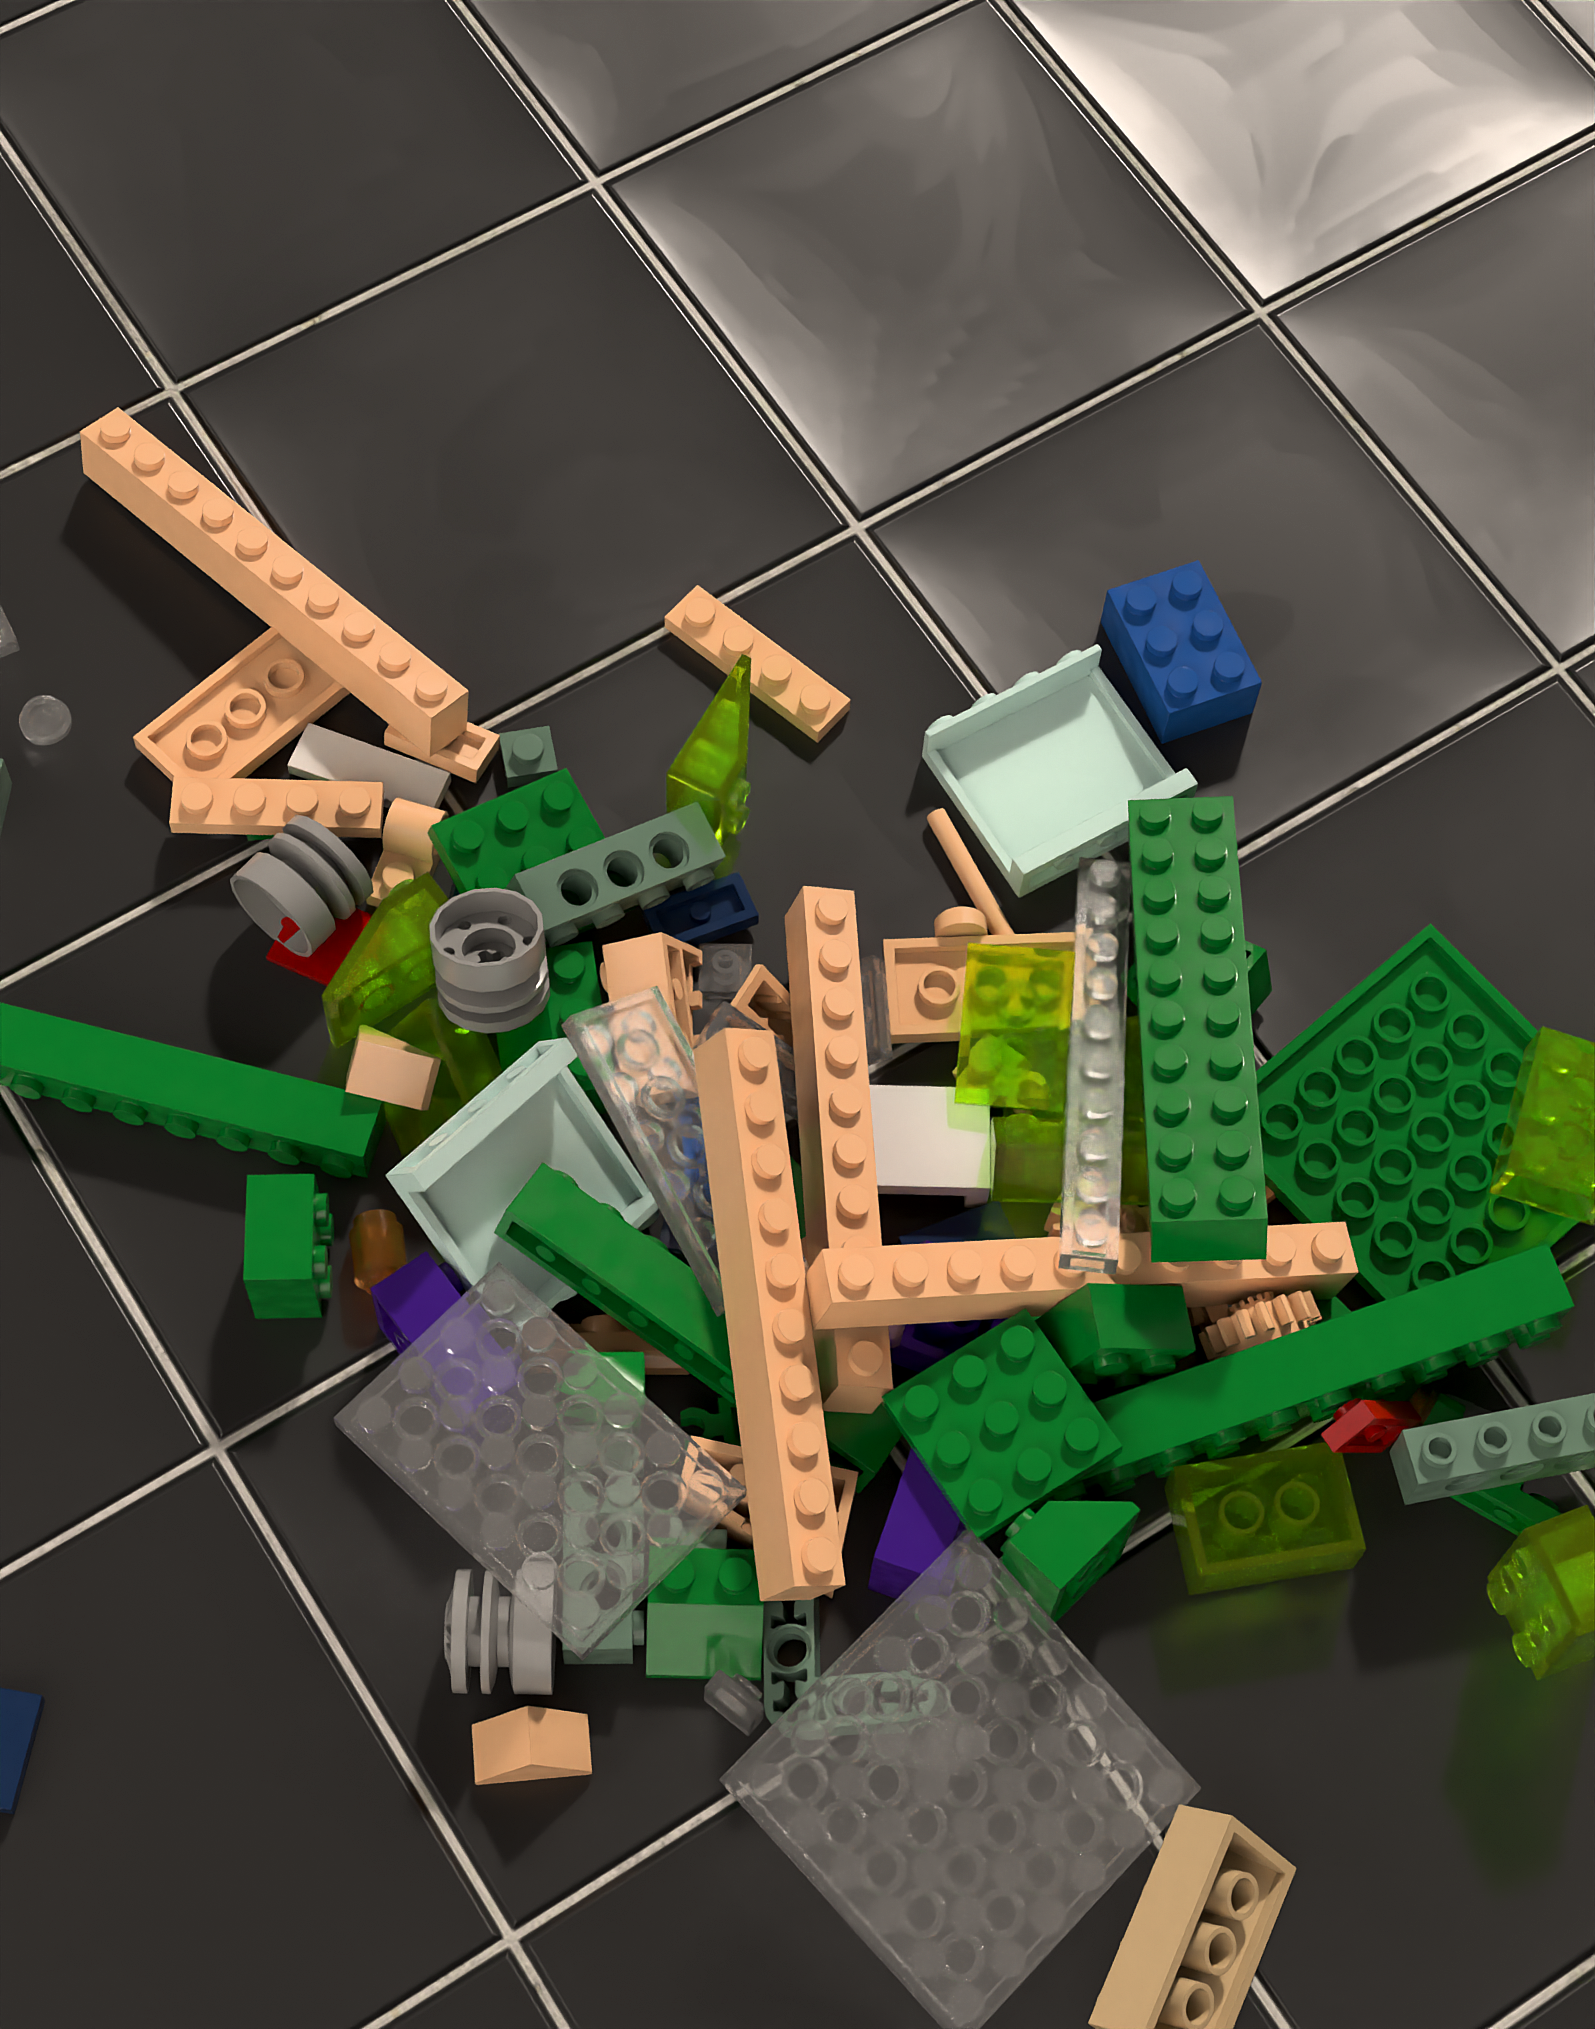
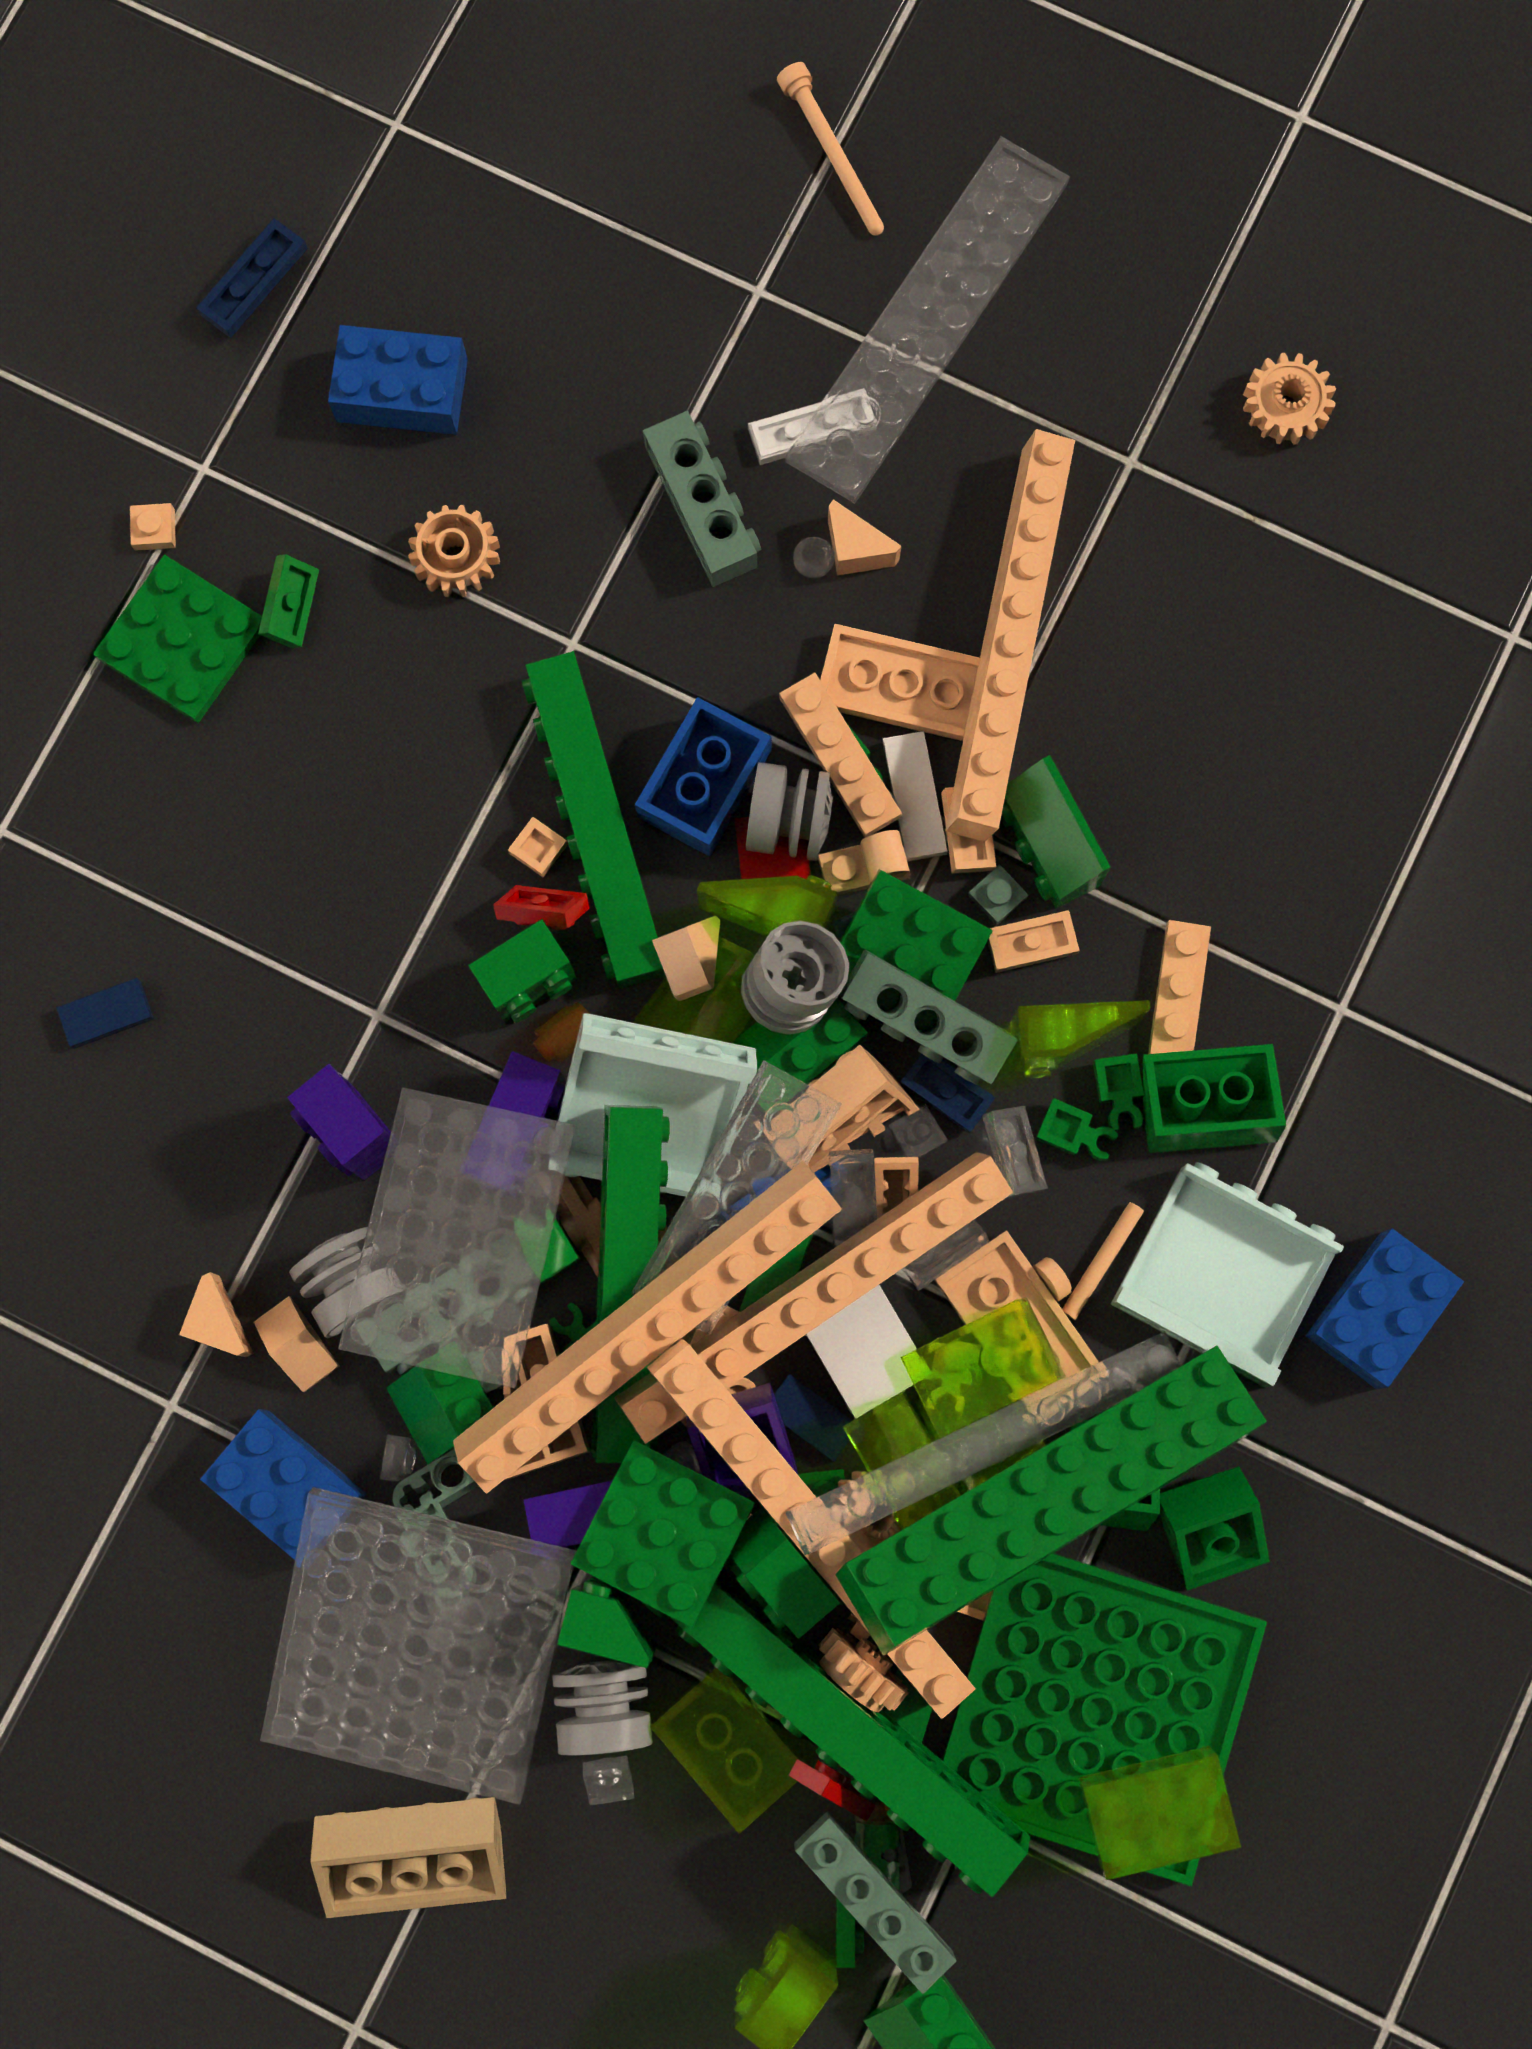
camera: 65 degrees right, 15 degrees up
(63, 667) = (859, 544): none -> light nougat slope
(153, 1164) = (537, 847): none -> light nougat plate
(203, 949) = (703, 776): none -> blue brick
(216, 1200) = (531, 904): none -> red plate
(219, 219) = (1291, 379): none -> light nougat gear
(325, 1521) = (342, 1122): none -> dark purple brick
(449, 1819) = (214, 1320): none -> light nougat slope
(510, 655) = (1053, 834): none -> green slope
(601, 747) = (1032, 941): none -> light nougat plate
(682, 1851) = (269, 1476): none -> blue brick
(781, 880) = (1015, 1150): none -> clear plate
(802, 753) = (1119, 1082): none -> green plate
(819, 827) = (1068, 1128): none -> green plate
(874, 676) = (1212, 1098): none -> green slope
(1148, 1623) = (602, 1709): none -> light grey wheel
(1228, 1673) = (608, 1780): none -> clear plate
(1307, 923) = (1214, 1527): none -> green slope

